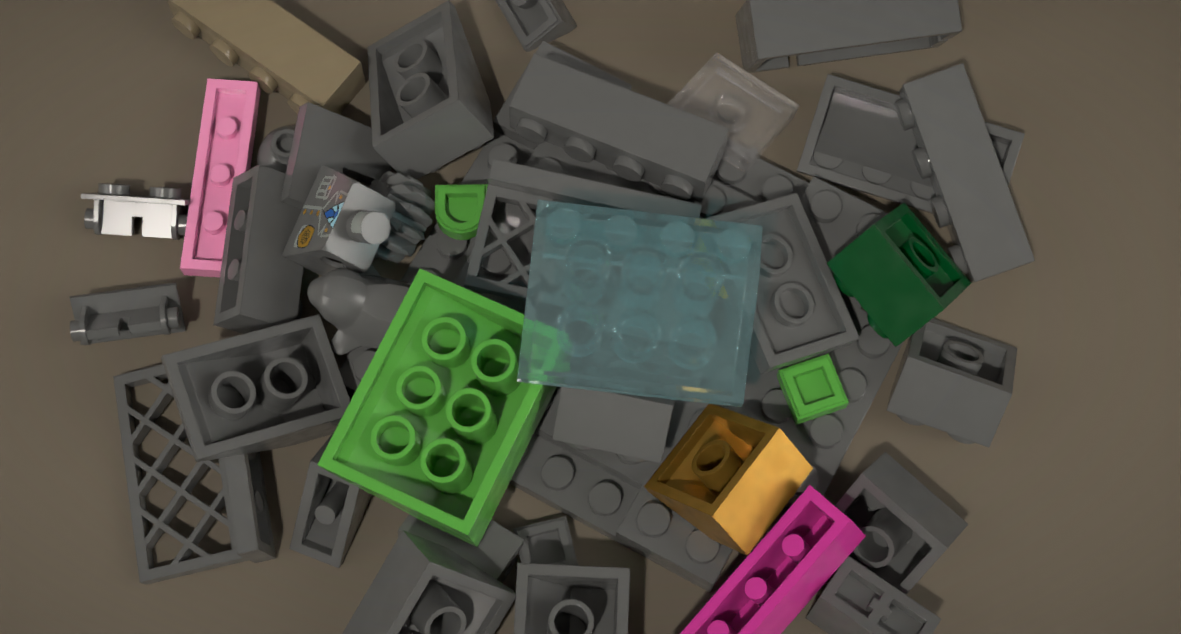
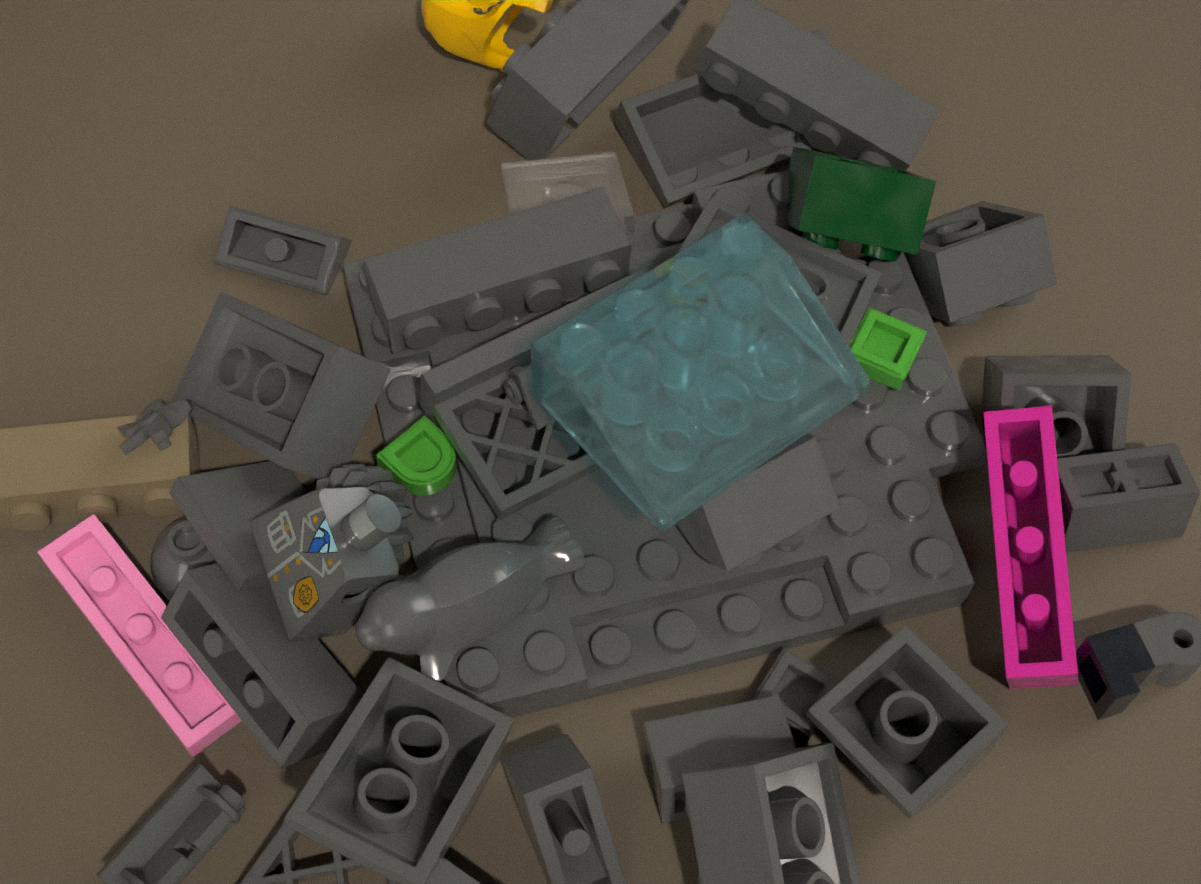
camera: 45 degrees left, 10 degrees down
(116, 211) = (60, 751): hinge -> none
(326, 56) = (155, 423): none -> dark grey plant
(441, 410) = (606, 631): bright green slope -> none
(730, 476) = (904, 471): pearl gold slope -> none

